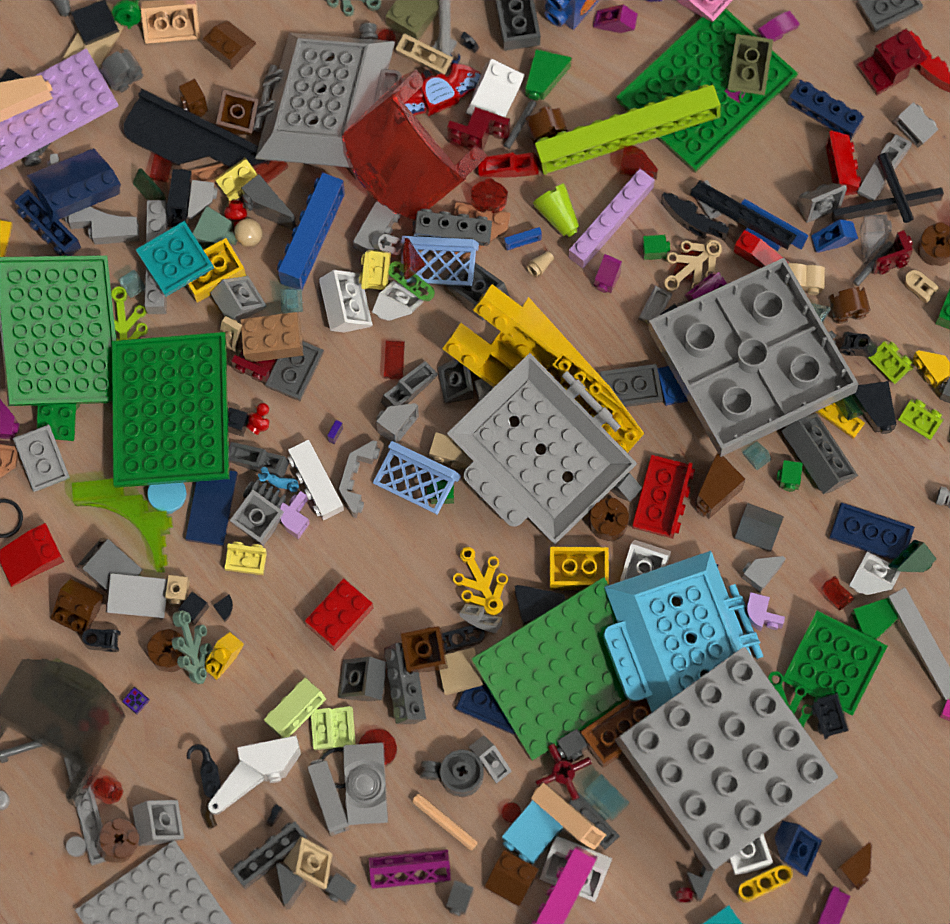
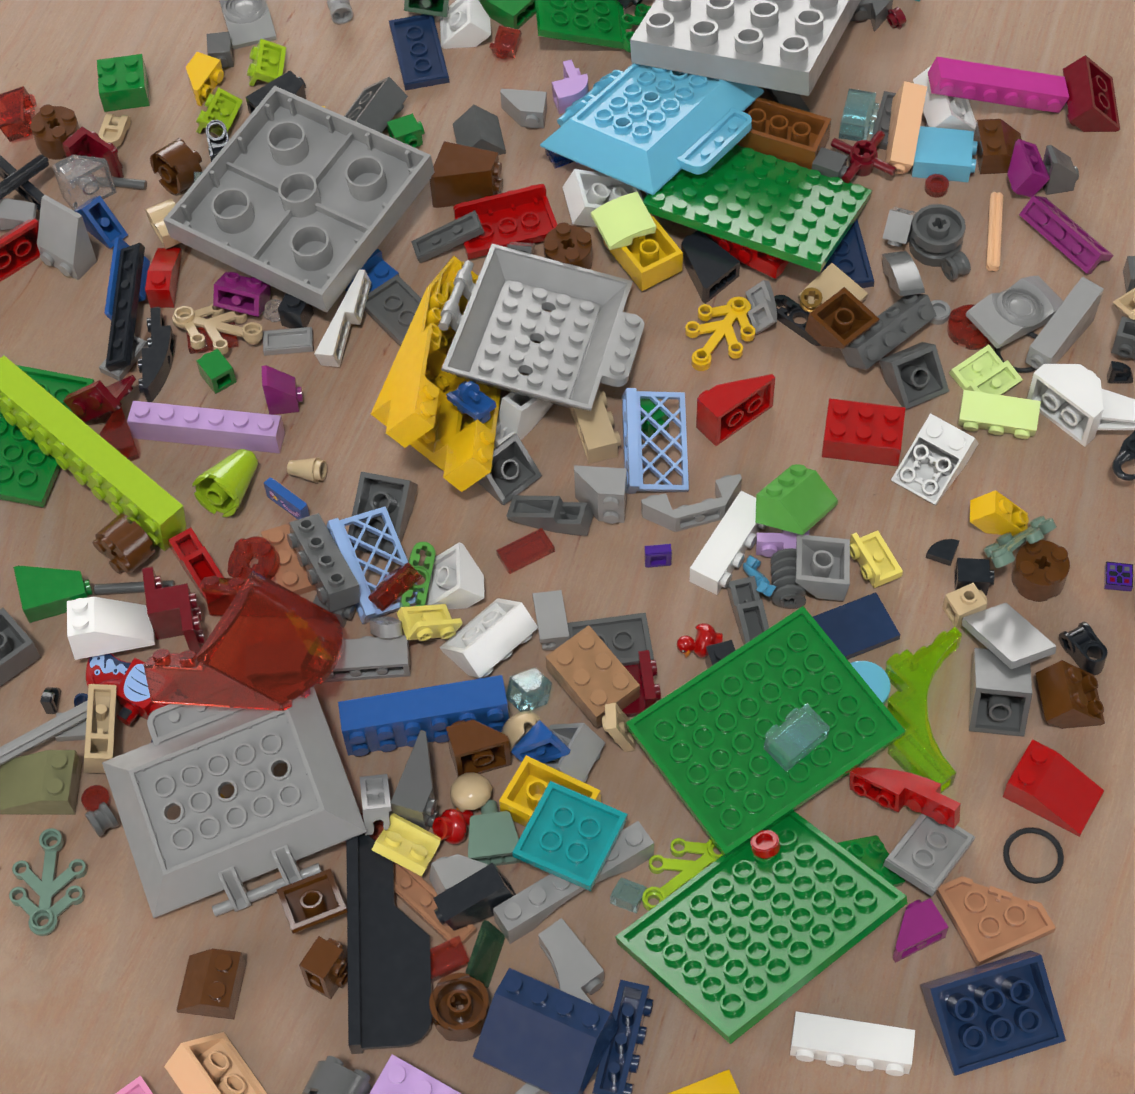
camera: 120 degrees left, 15 degrees down
(88, 463) = (899, 788): none -> red slope
(103, 366) = (765, 844): none -> red tile
(116, 153) = (454, 991): none -> reddish brown brick
(147, 415) = (796, 736): none -> clear light blue brick
(246, 284) = (540, 745): none -> blue slope
(270, 279) = (518, 726): none -> tan hair
(271, 247) = (477, 747): none -> reddish brown slope
(275, 175) = (375, 801): none -> light grey hinge
(291, 648) = (935, 459): none -> white slope
(309, 529) = (794, 500): none -> bright green slope
(332, 341) = (551, 619): none -> light grey hinge
(404, 735) = (942, 311): none -> light grey tile
(409, 534) = (732, 406): none -> red slope
(440, 721) = (902, 273): none -> dark grey slope
(466, 654) = (810, 292): none -> pearl gold bush
(478, 876) = (1027, 169): none -> magenta slope
(501, 367) = (472, 401): none -> blue hips
(598, 557) = (623, 220): none -> yellowish green slope
(644, 349) = (349, 312): none -> white slope
(668, 165) = (98, 399): none -> dark red bracket
(674, 450) = (447, 236): none -> dark grey tile

